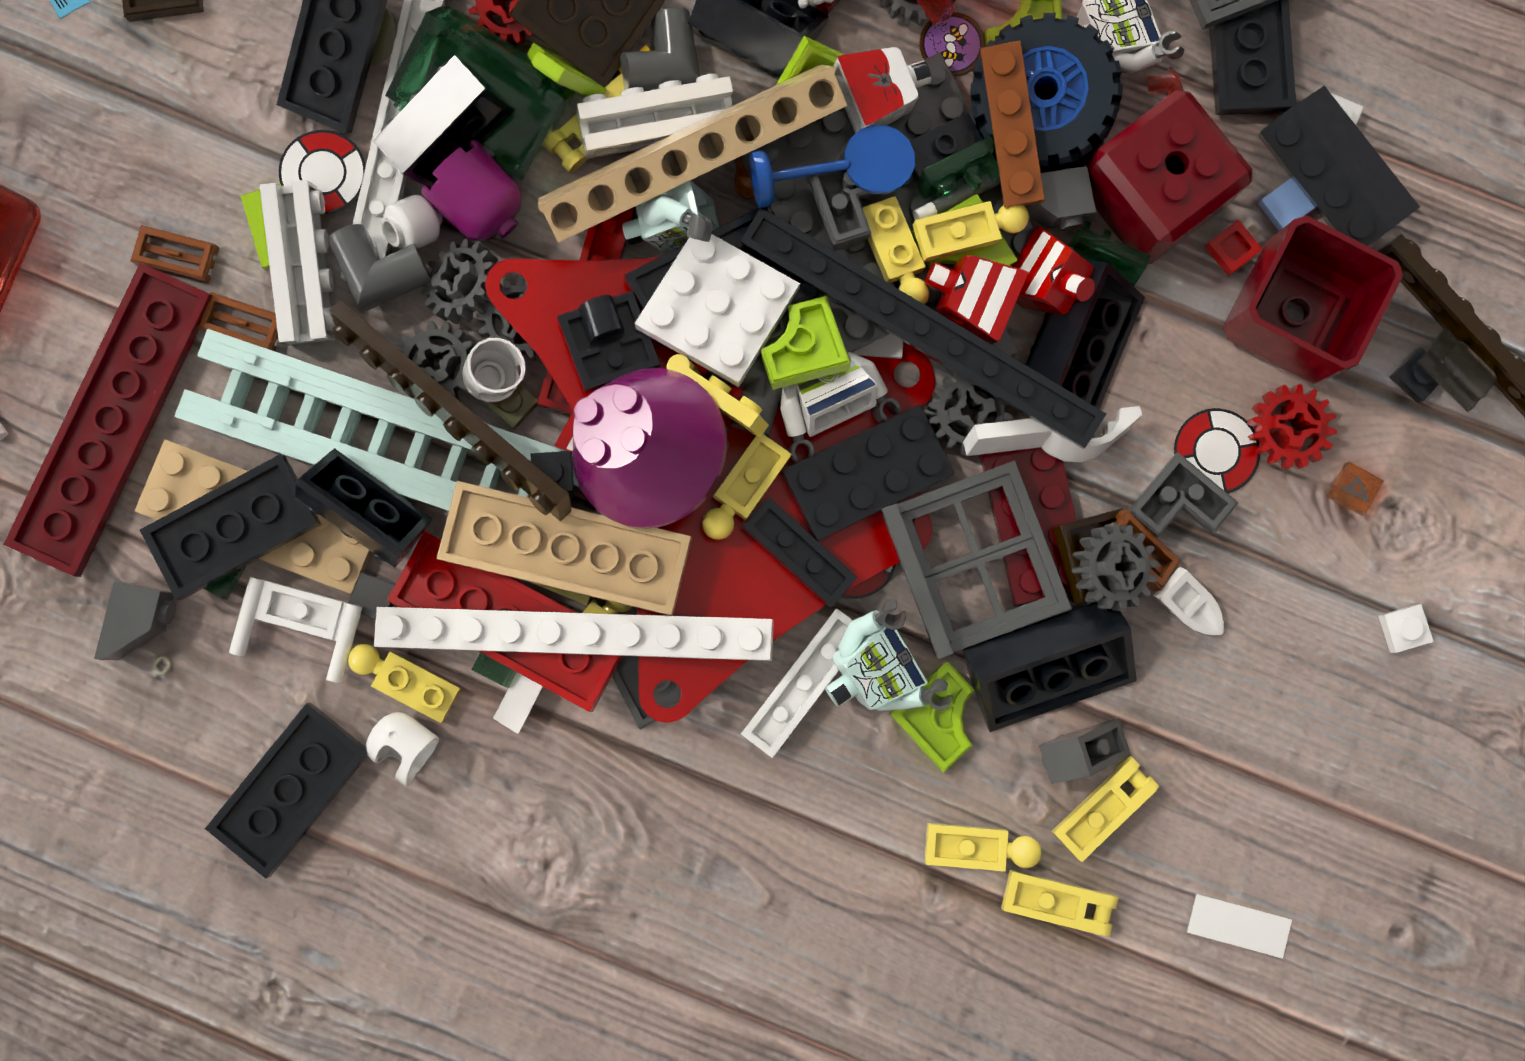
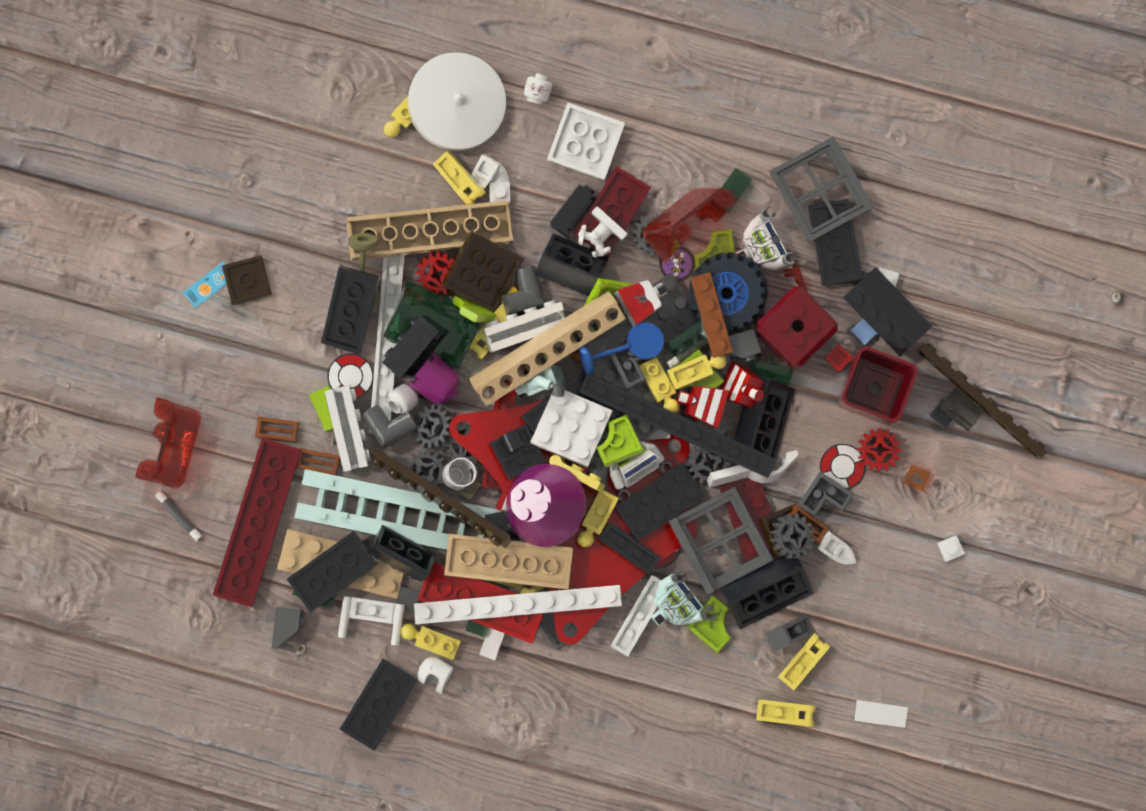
camera: 10 degrees left, 0 degrees up
(978, 848) = (740, 689): light yellow plate -> none

